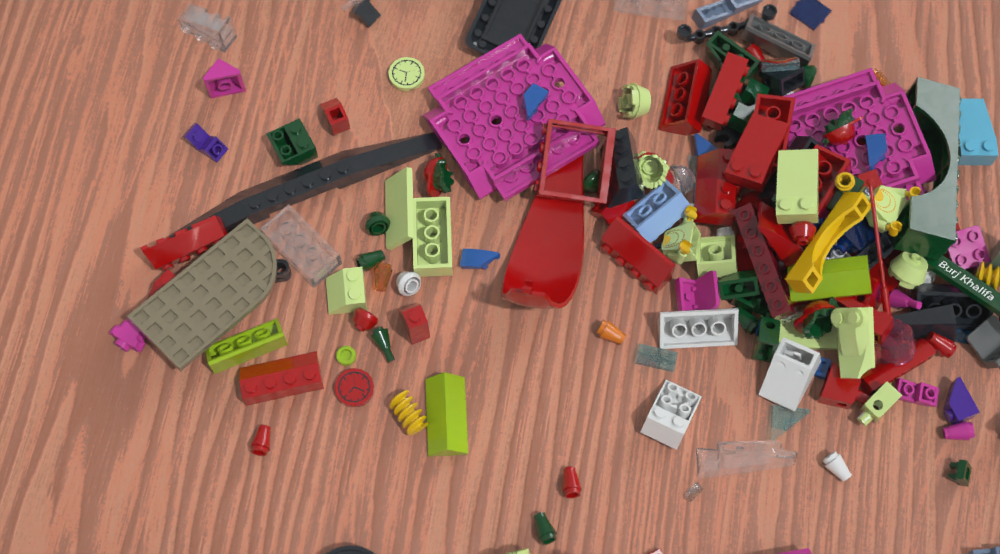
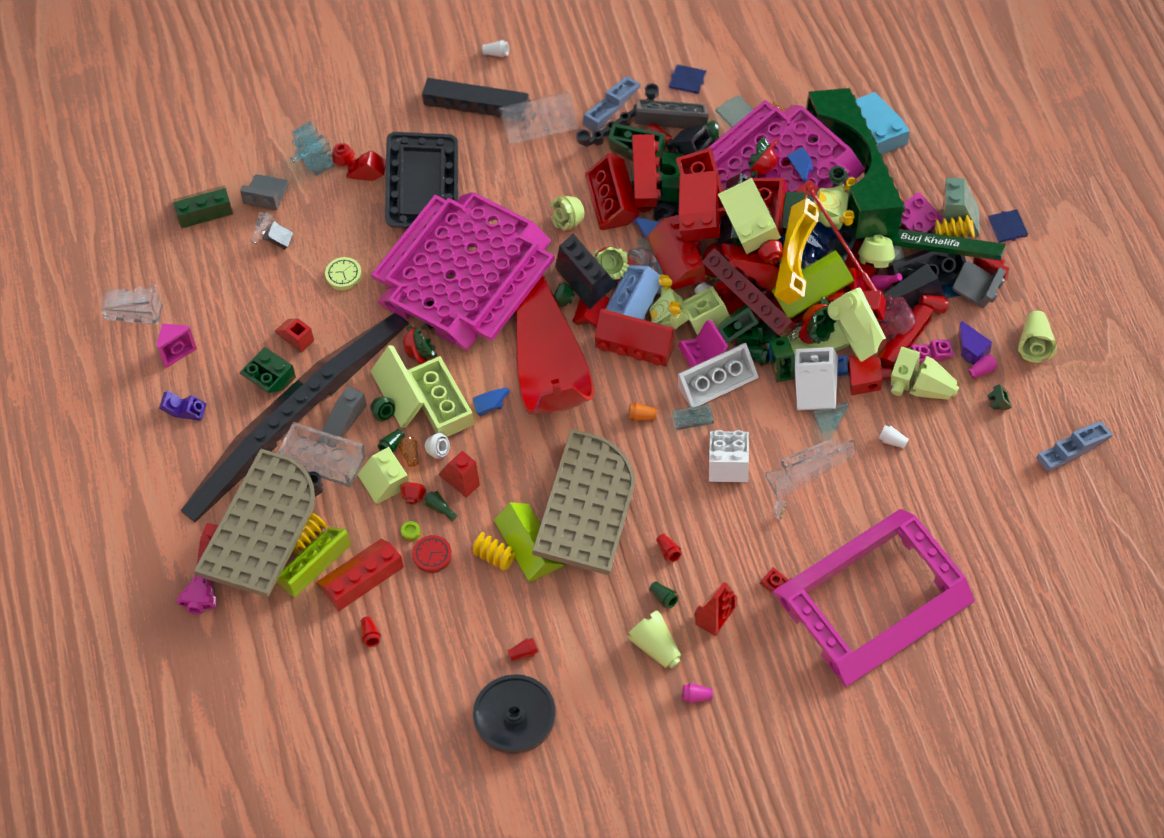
camera: 20 degrees left, 10 degrees down
(185, 243) = (212, 494): red wedge -> none
(258, 313) = (313, 525): none -> yellow piece
(340, 214) = (345, 412): none -> dark grey slope
(392, 524) = (524, 649): none -> red cone
(514, 406) = (586, 504): none -> dark tan plate
(533, 99) = (476, 242): blue slope -> none
(605, 169) = (570, 274): red window -> none
(780, 64) = (683, 129): clear light blue slope -> none
(840, 63) = (734, 110): none -> clear light blue piece
(844, 179) = (787, 197): yellow cone -> none
(902, 426) = (933, 381): none -> yellowish green cone
(908, 176) = (837, 175): none -> dark green cone

